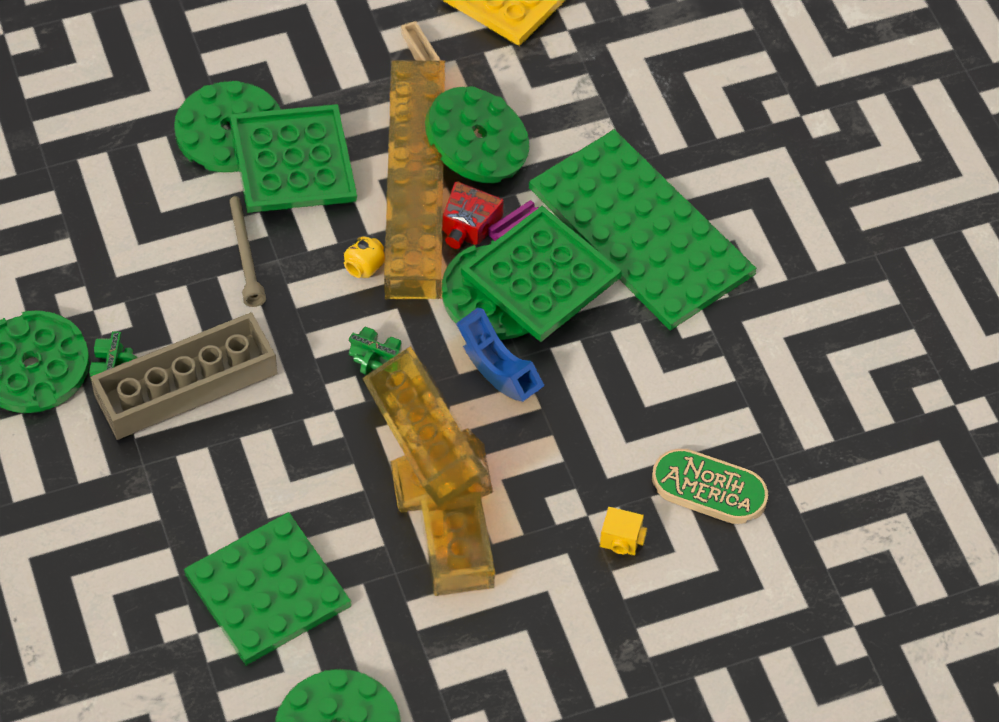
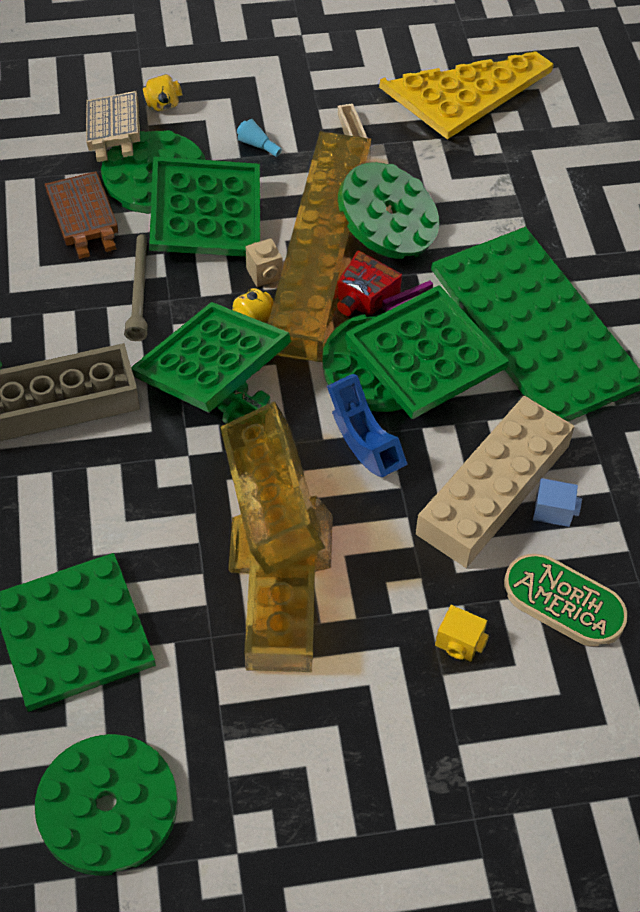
camera: 10 degrees right, 0 degrees up
(167, 181) = (83, 212): none -> dark orange tile
(175, 81) = (112, 123): none -> tan tile
(217, 39) = (162, 92): none -> yellow head
(322, 72) = (252, 134): none -> medium azure cone
(336, 310) = (211, 356): none -> green plate
(364, 207) = (263, 262): none -> tan brick
(628, 387) = (494, 481): none -> tan brick
(688, 398) = (556, 502): none -> medium blue brick

